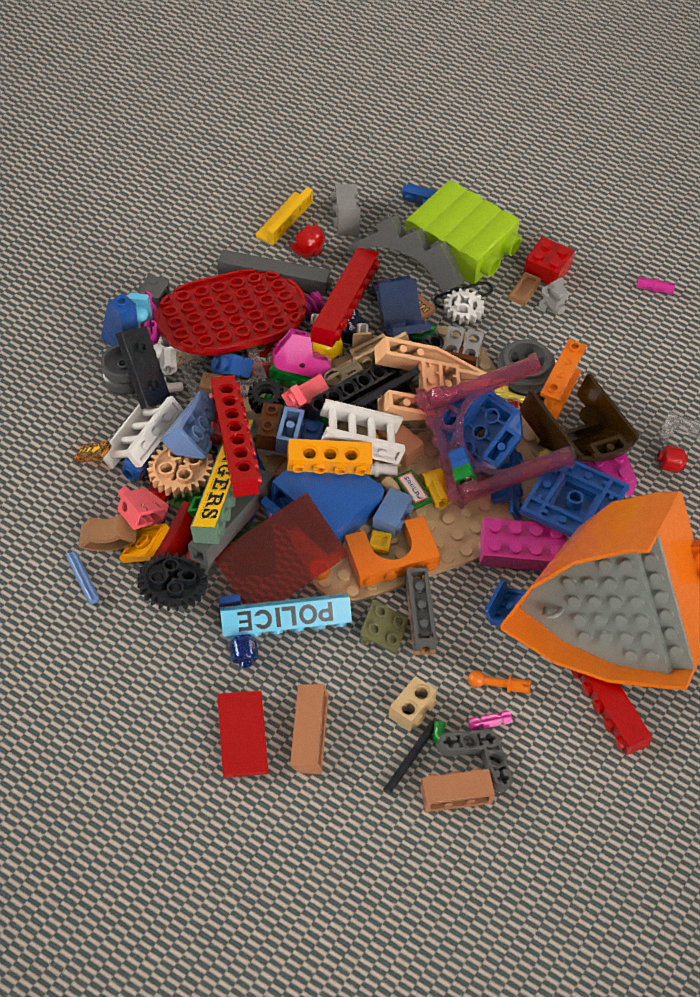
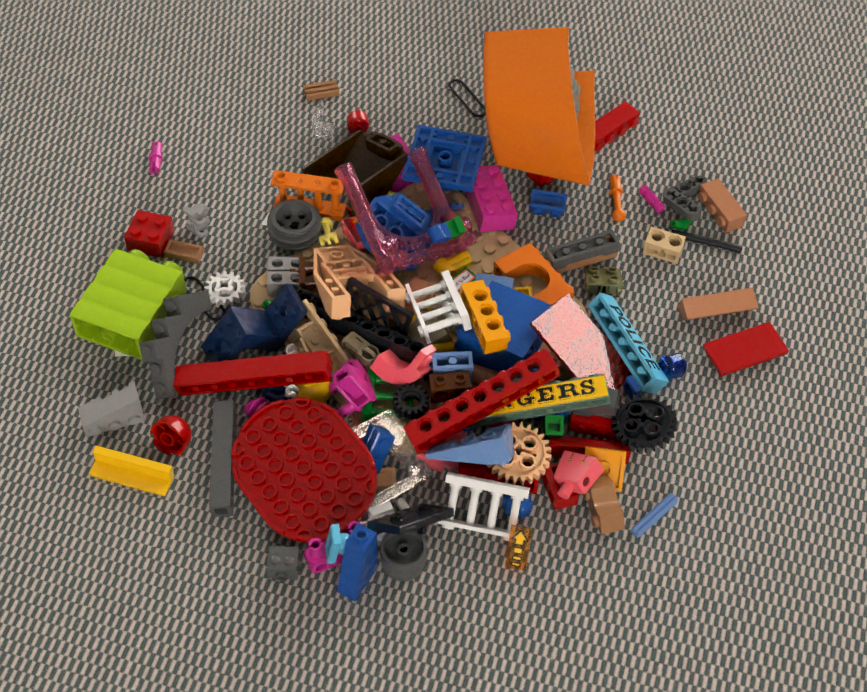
camera: 105 degrees left, 0 degrees up
(416, 194) = (75, 351): blue bracket -> none

